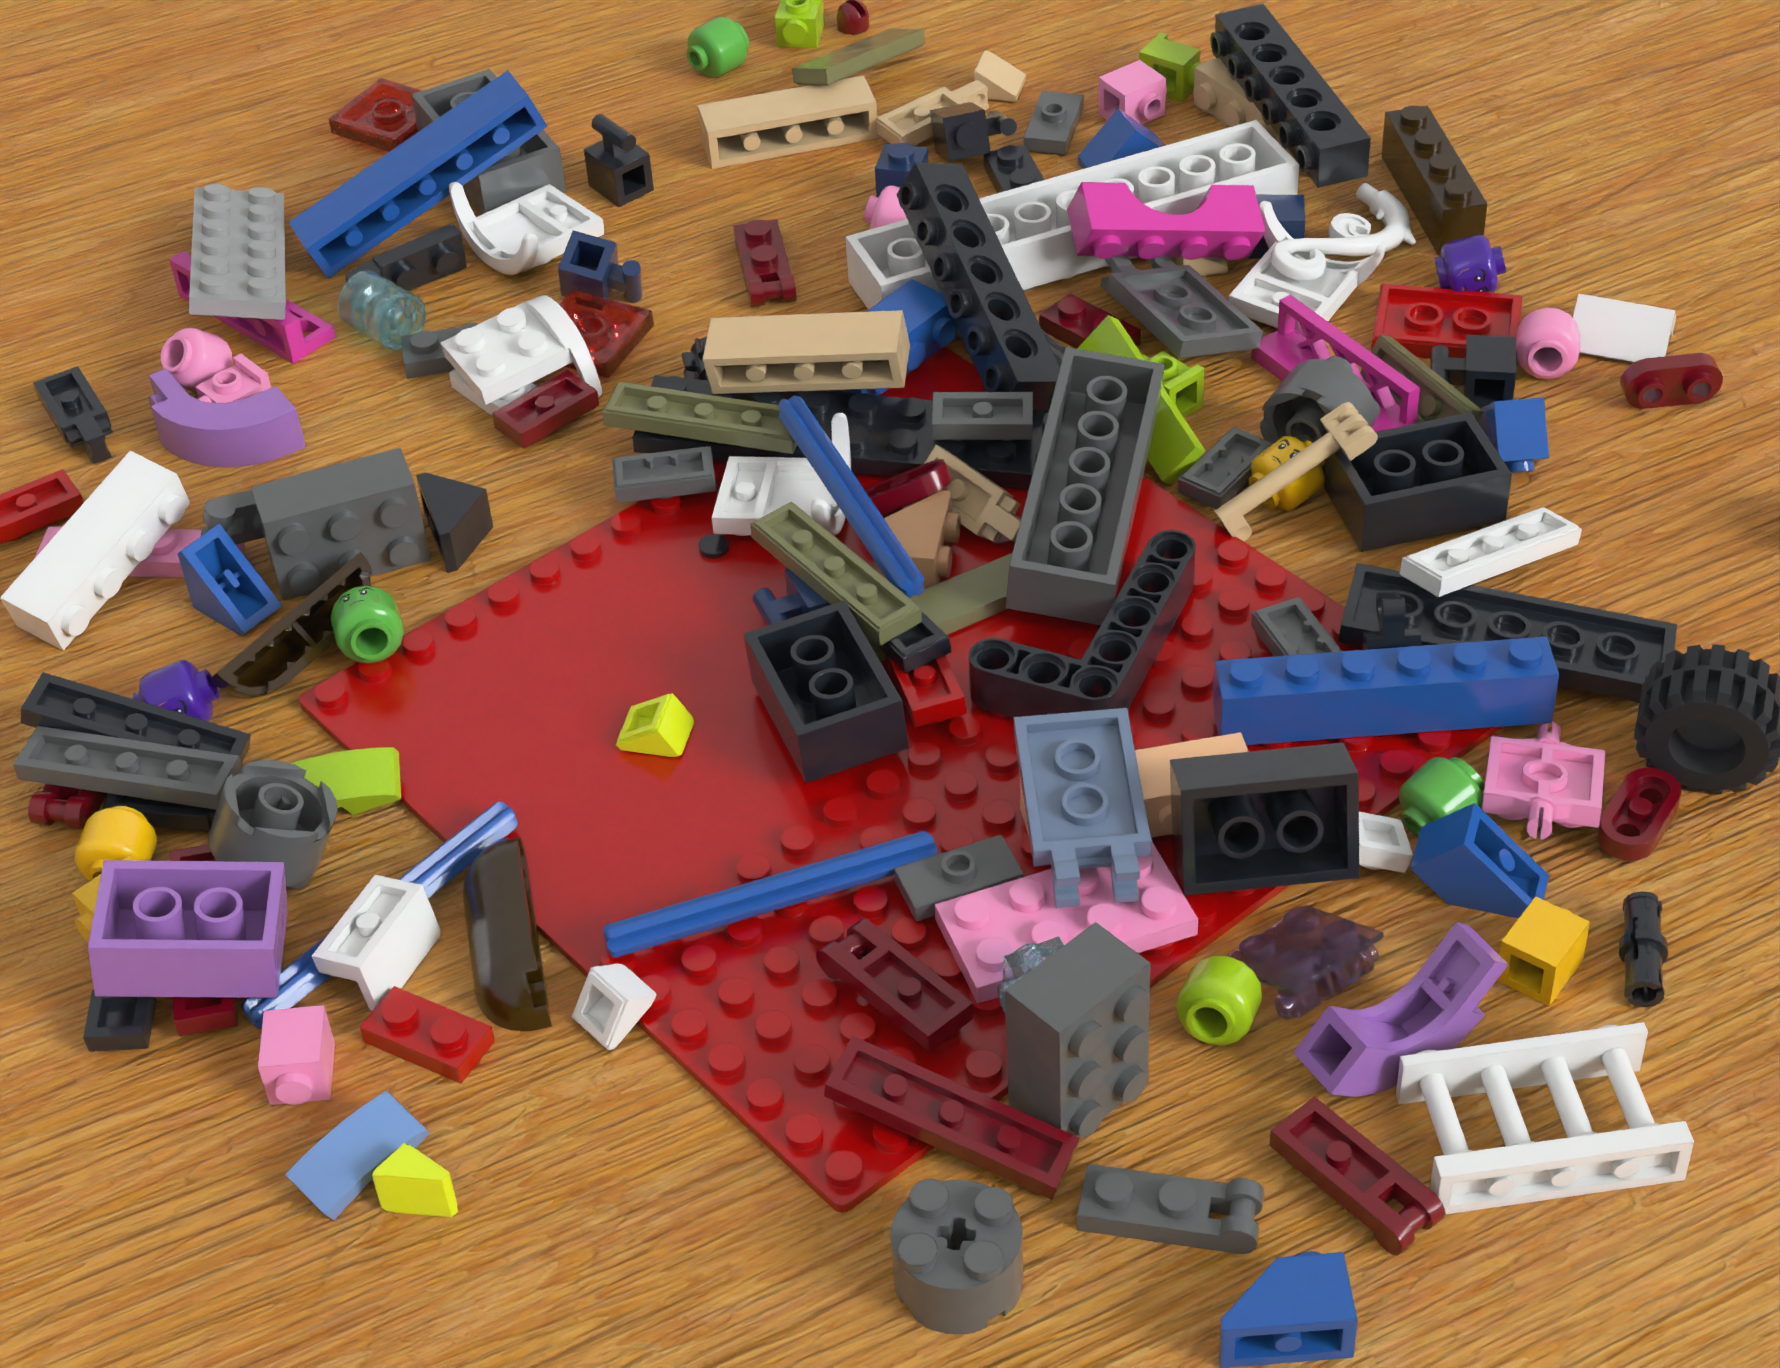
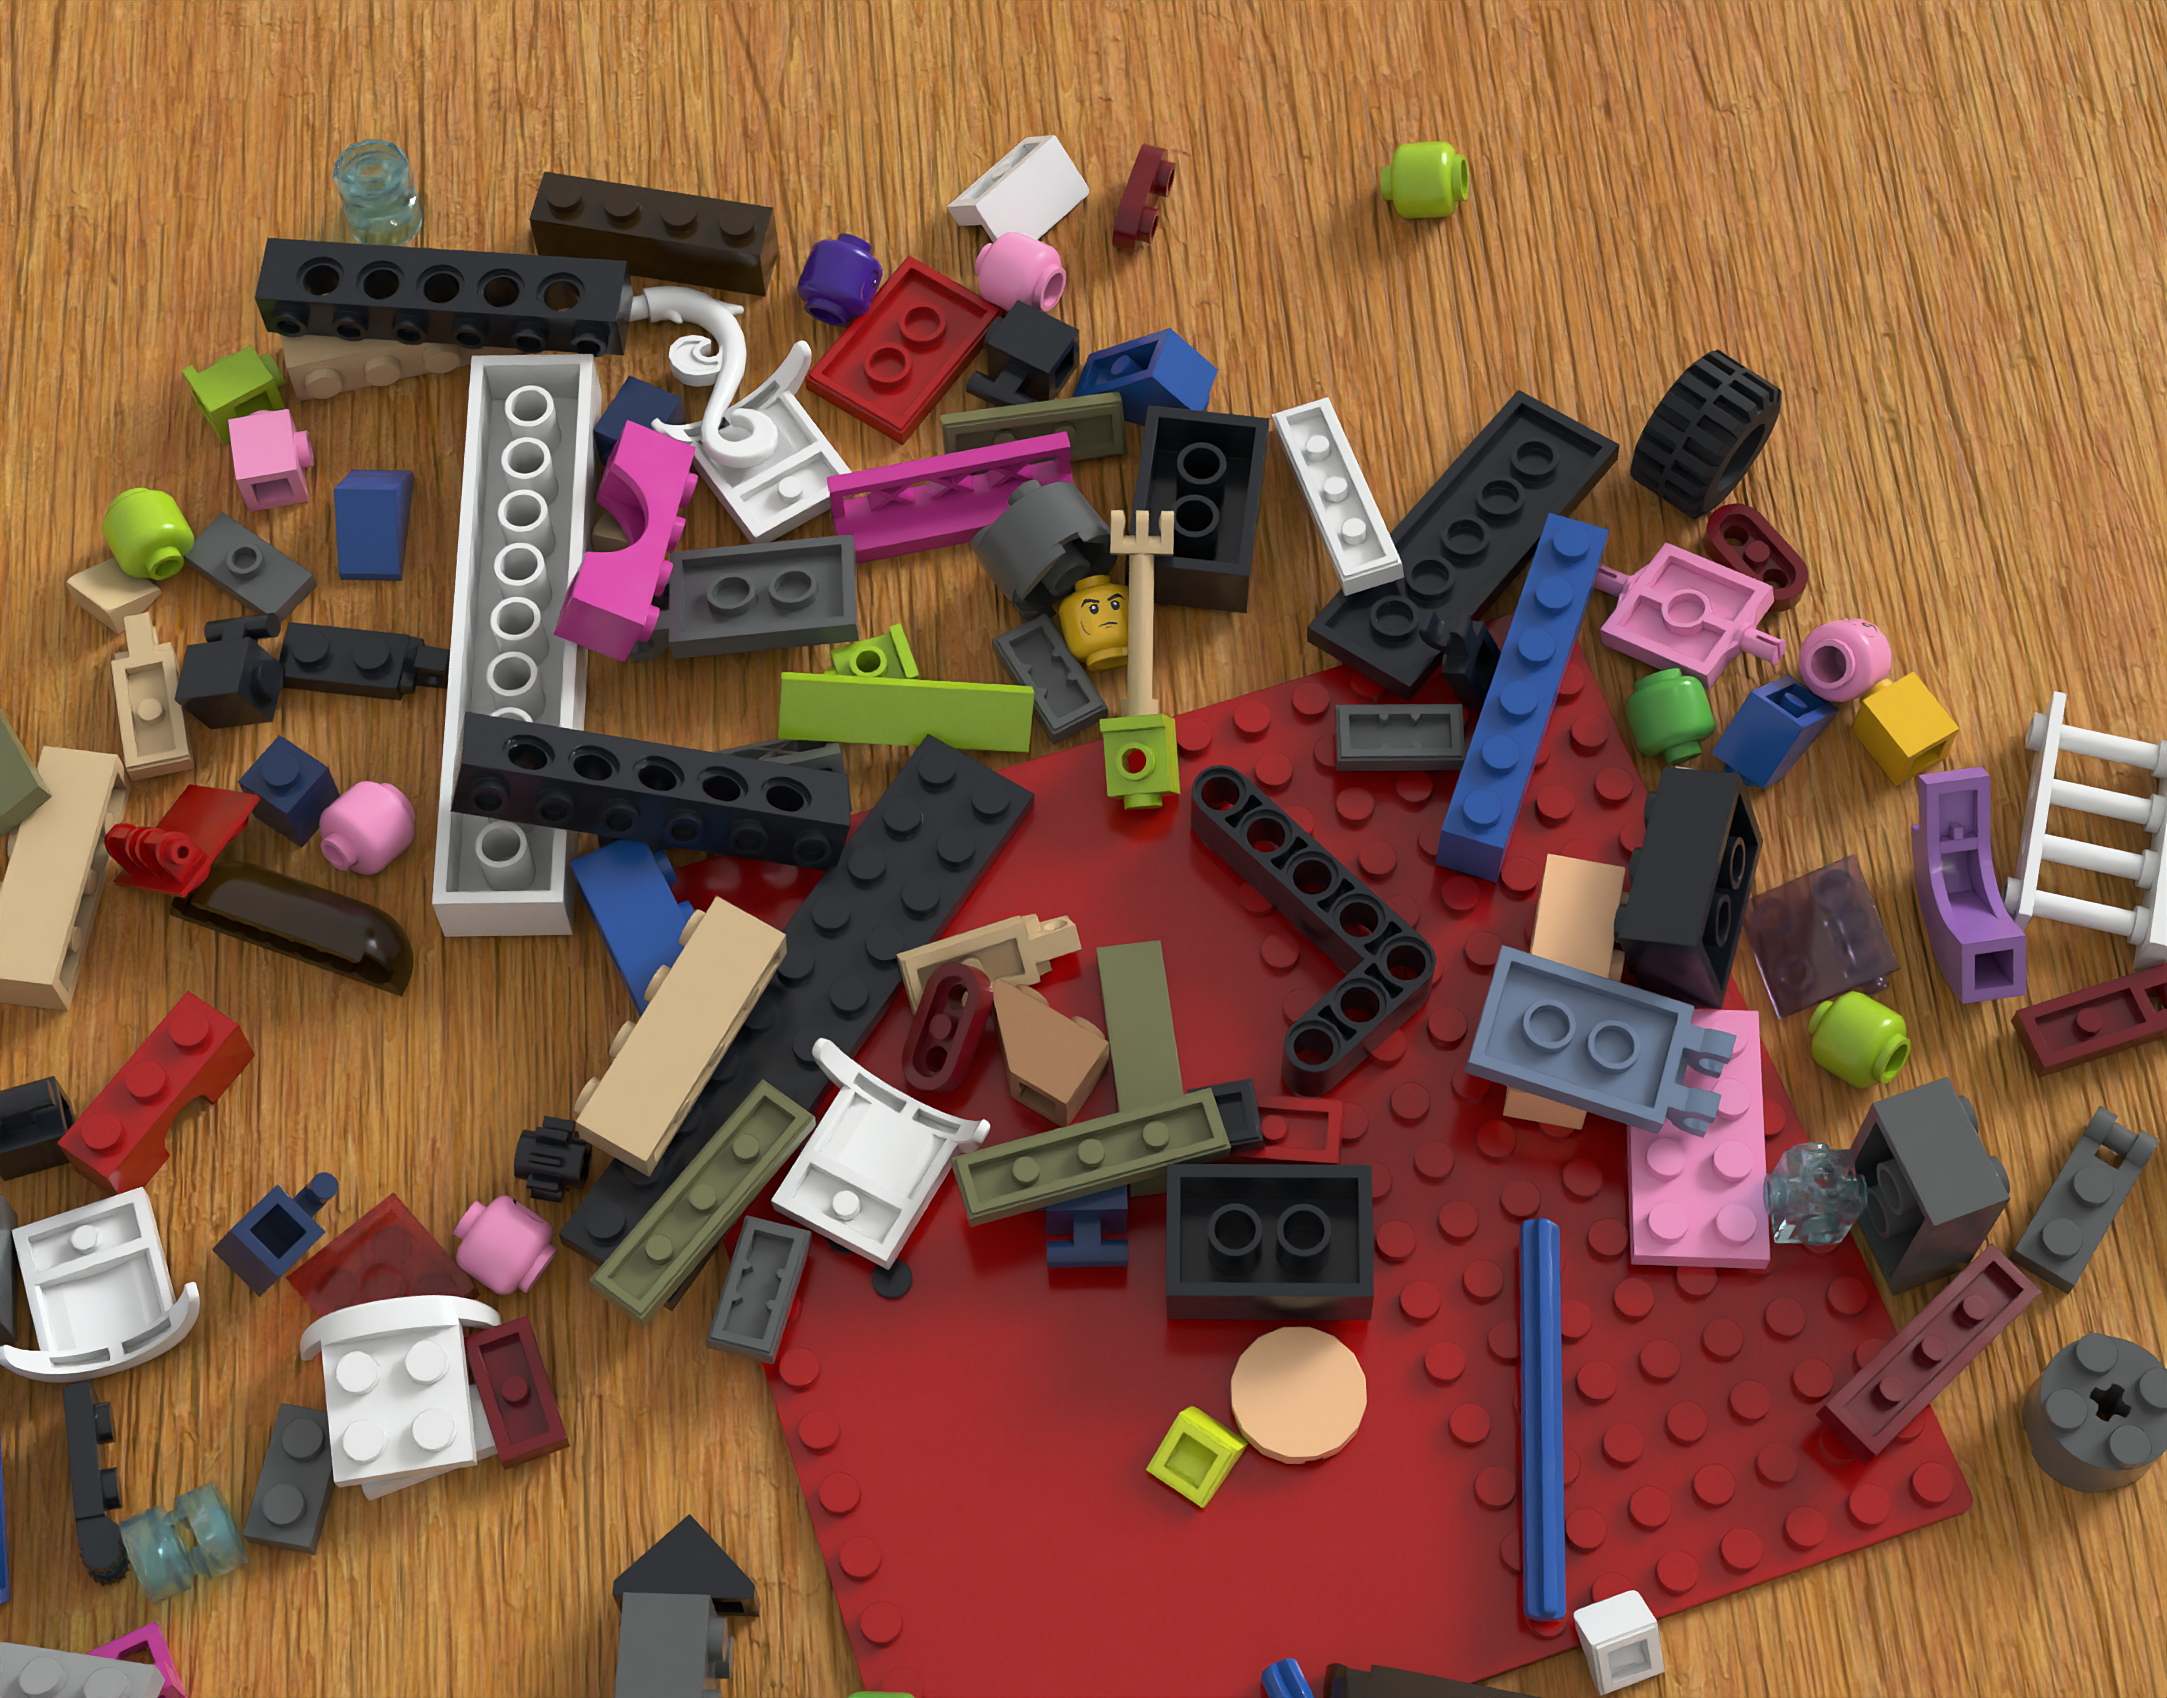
camera: 70 degrees left, 20 degrees up
(639, 359) = (504, 1245): none -> bright pink head
(697, 200) = (124, 1130): none -> red arch
(726, 764) = (1298, 1395): none -> light nougat tile
(764, 262) = (344, 1021): dark red plate -> none
(821, 146) = (185, 842): none -> red hinge
(821, 223) = (301, 923): none -> dark brown brick
(851, 497) = (967, 1089): blue axle -> none
(896, 984) = (1730, 1337): dark red plate -> none
(955, 874) = (1593, 1216): dark grey plate -> none
(982, 416) = (880, 889): dark grey plate -> none
(1042, 68) = (147, 534): none -> lime head
(1075, 319) = (705, 706): dark red plate -> none
(1085, 487) = (1077, 830): dark grey brick -> none
(1185, 508) = (1157, 740): none -> lime brick
(1359, 63) = (378, 193): none -> clear light blue wheel
(1576, 880) = (1844, 659): none -> bright pink head
(1643, 949) = (1968, 664): black pin -> none

